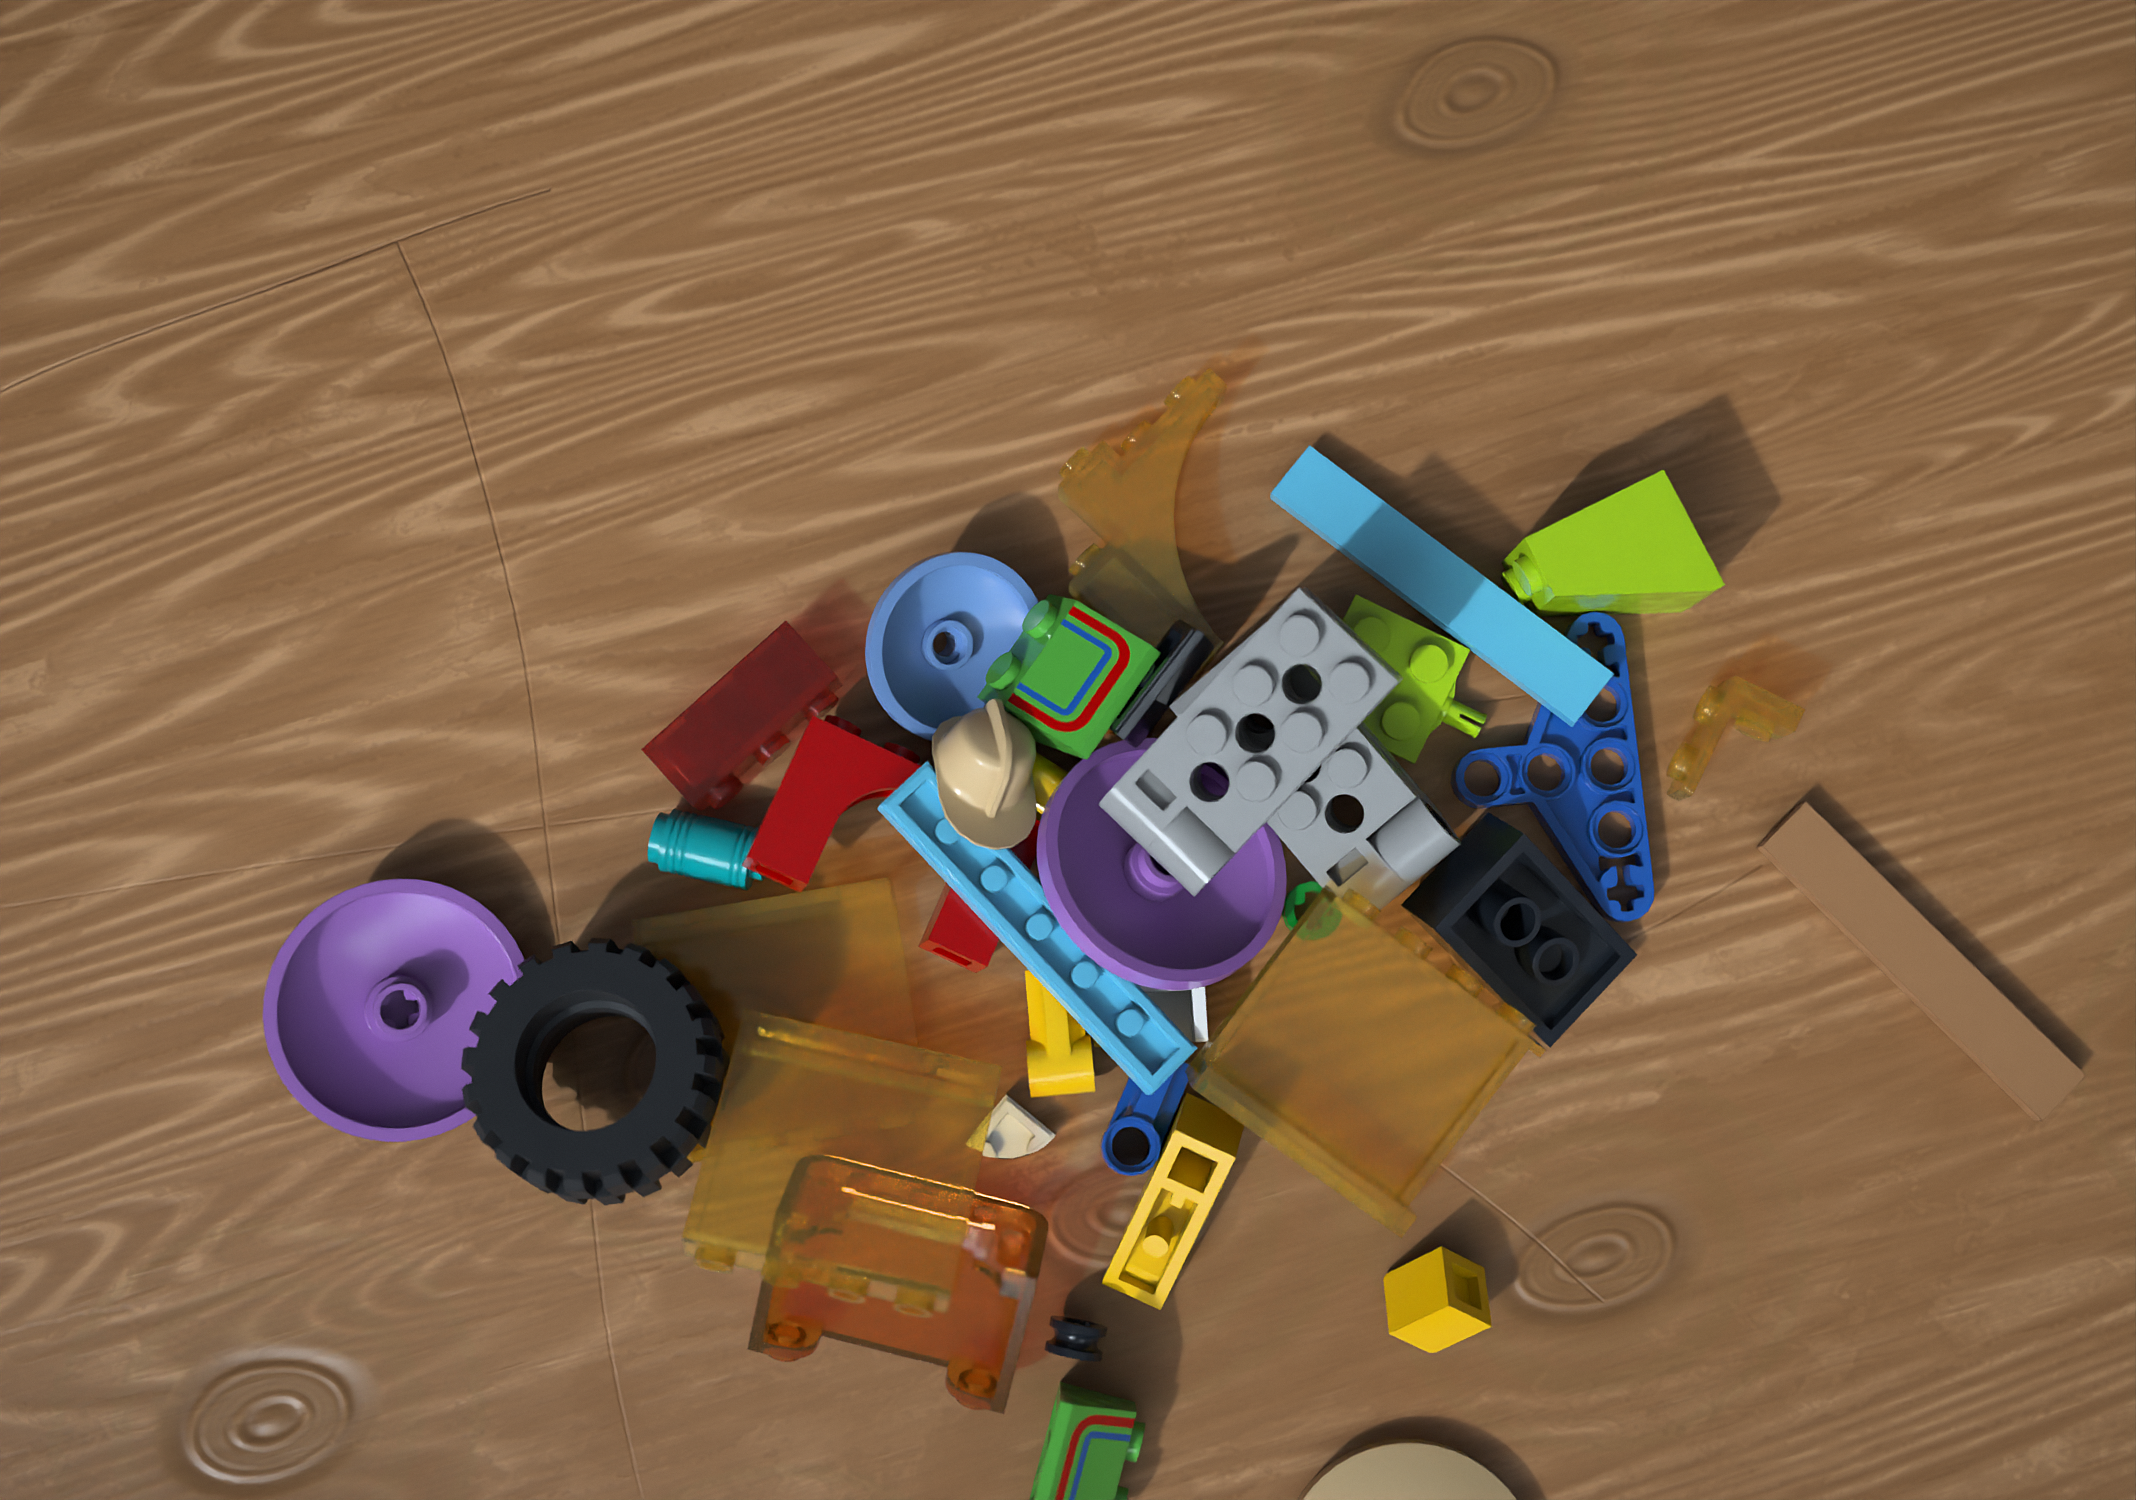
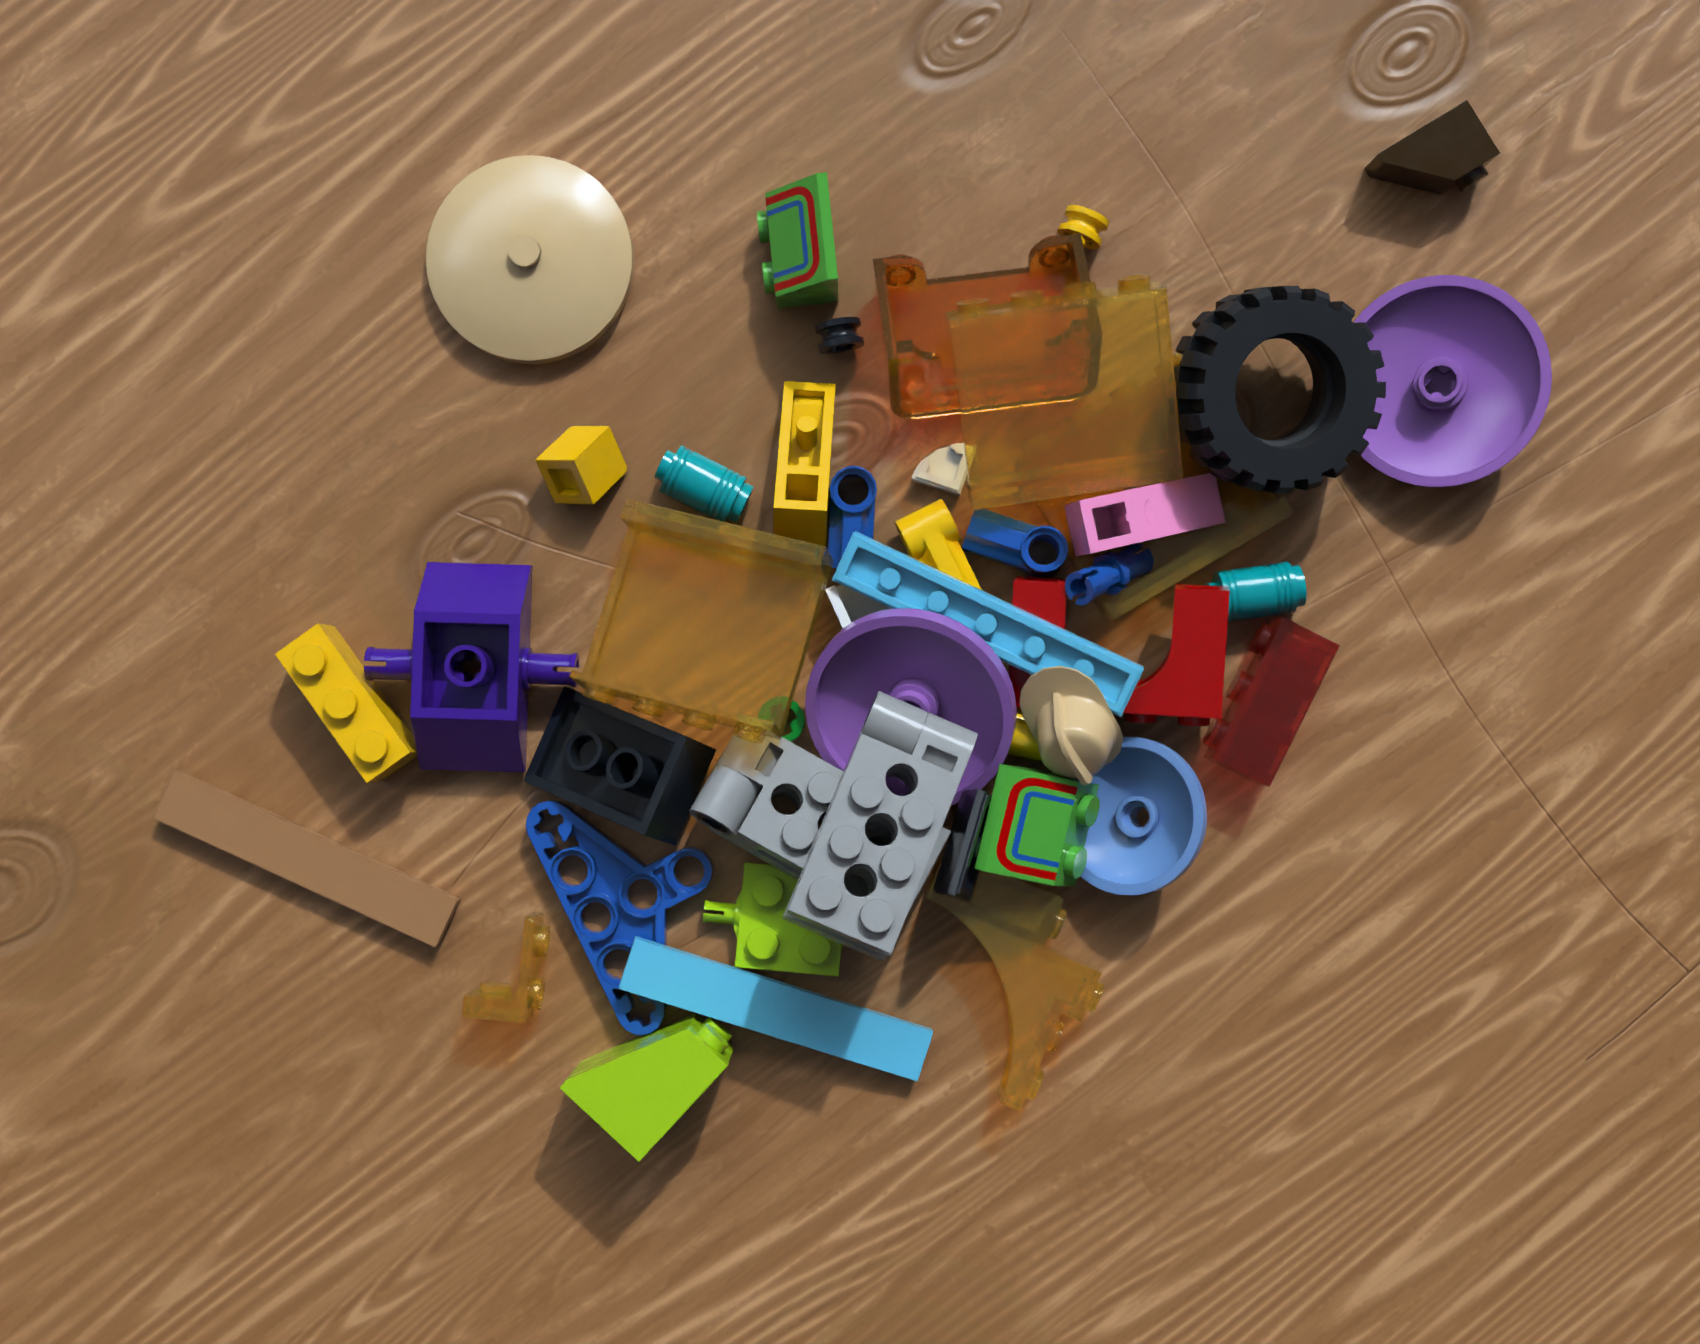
camera: 160 degrees right, 5 degrees up
(286, 1282) = (1439, 154): none -> dark brown slope
(735, 1360) = (1084, 222): none -> yellow bush
(803, 985) = (1144, 514): none -> bright pink slope
(872, 932) = (1109, 574): none -> blue pin
(971, 1016) = (1008, 542): none -> blue piece
(1302, 1221) = (703, 484): none -> teal head
(1650, 1174) = (460, 719): none -> dark purple slope
(1810, 1122) = (348, 703): none -> yellow brick

